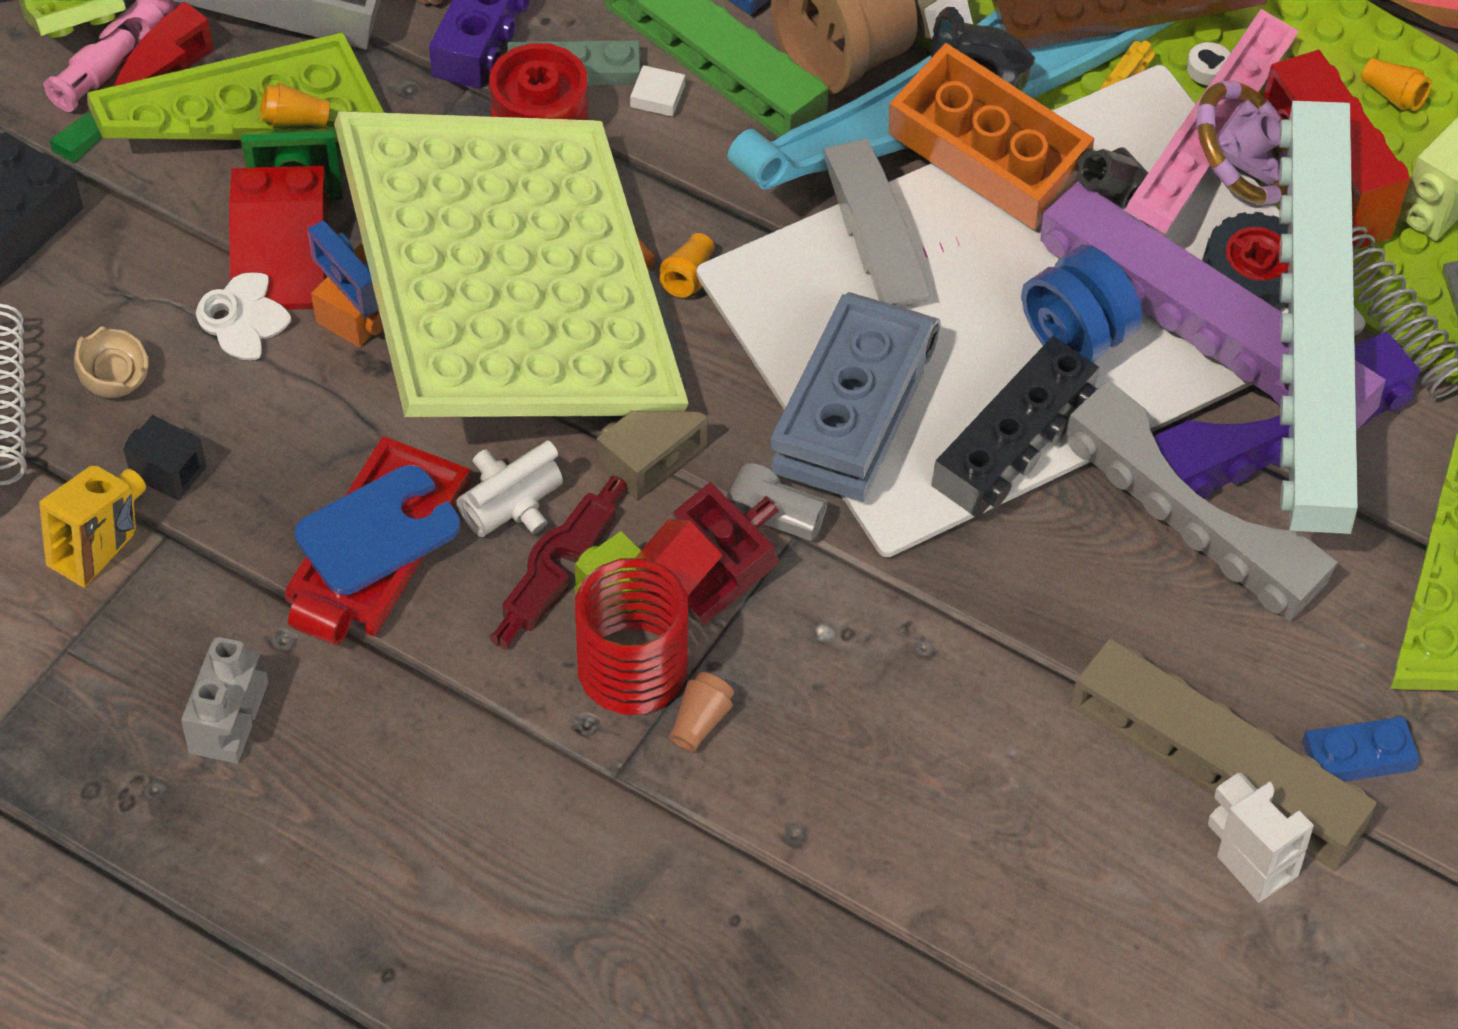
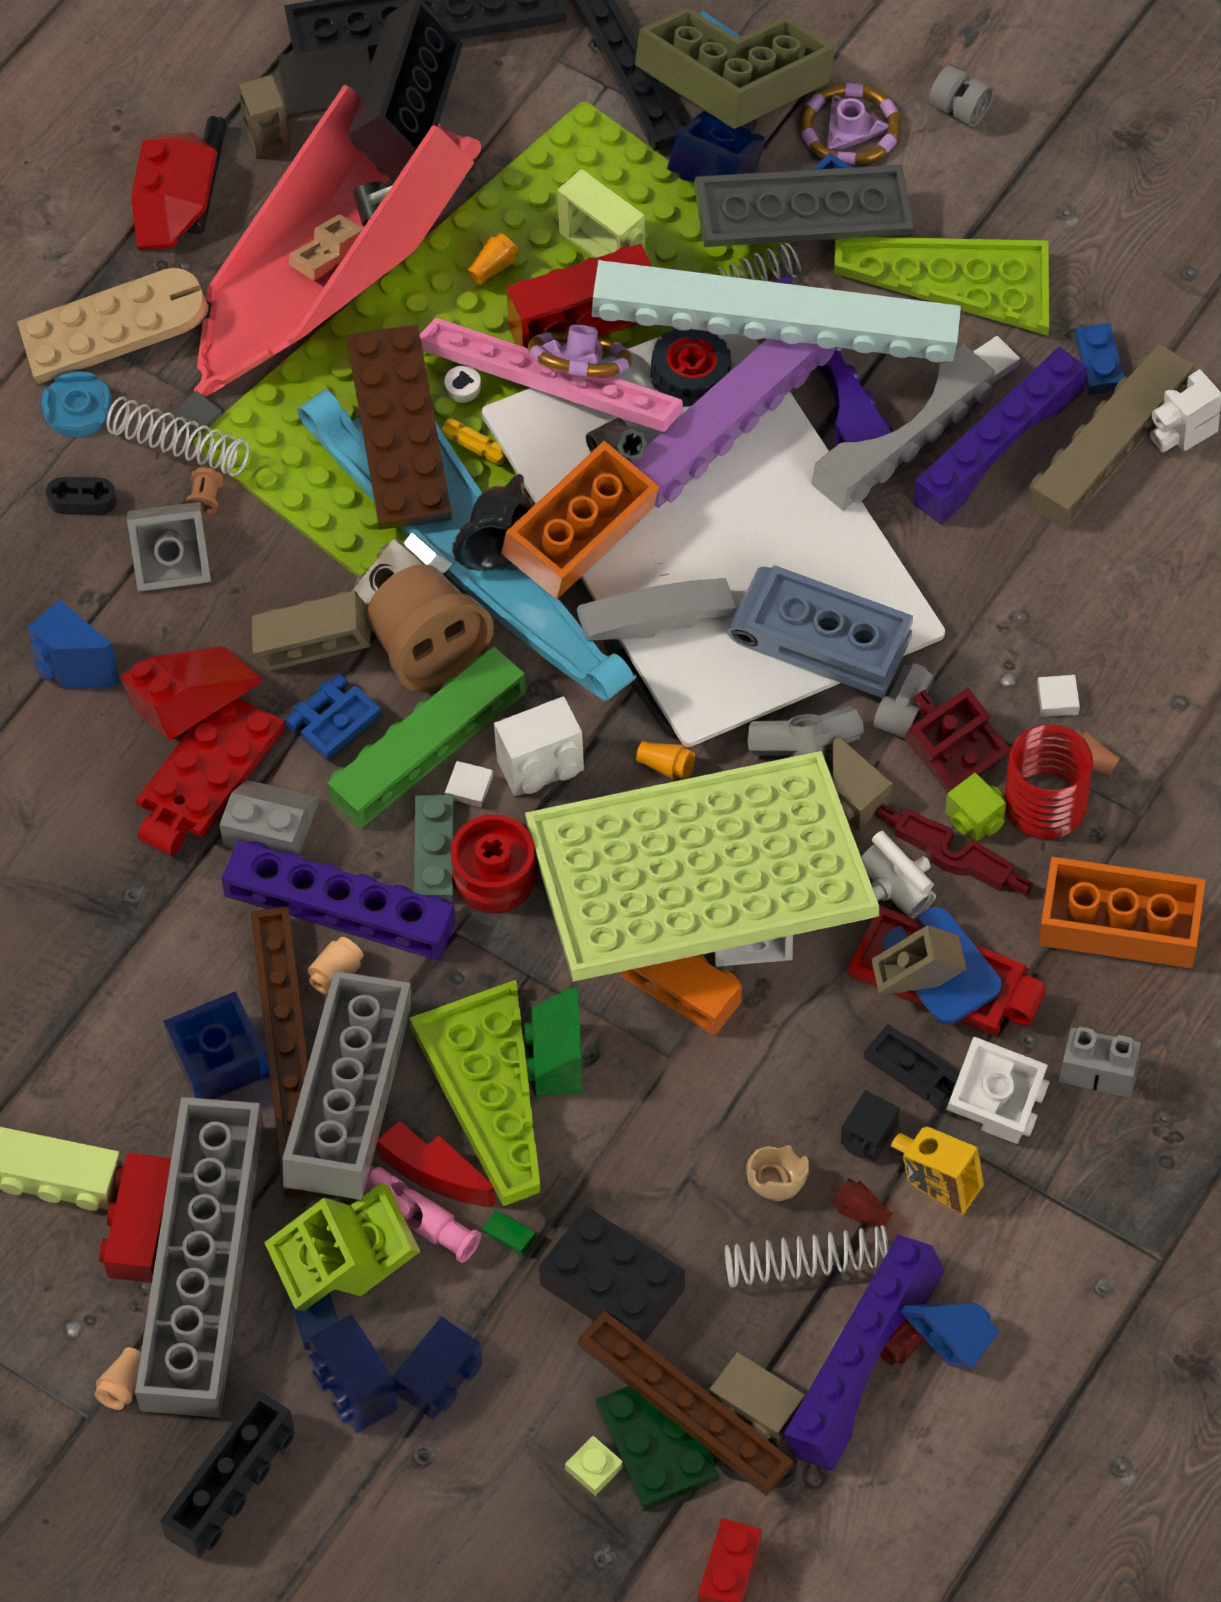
camera: 85 degrees left, 5 degrees up
(61, 450) = (861, 1205): none -> clear red cone
(191, 584) = (999, 1090): none -> white plate
(240, 511) = (912, 1067): none -> black hinge
(249, 316) = (718, 1081): white plate -> none
(270, 228) = (640, 1059): red slope -> none
(292, 108) = (514, 1043): light orange cone -> none
(338, 261) = (695, 990): blue plate -> none
(364, 492) = (919, 962): none -> dark tan slope
(440, 729) = (1122, 912): none -> orange brick
(682, 551) = (981, 752): red brick -> none
(688, 129) = (539, 746): none -> white brick
(714, 393) = (804, 733): none -> light grey piece
(796, 683) = (1058, 695): none -> white tile
(1015, 428) = (845, 532): black brick -> none
(1083, 303) = (751, 472): blue wheel -> none
(1278, 664) = (959, 470): none -> dark purple arch
(1338, 623) = (999, 357): none -> white tile

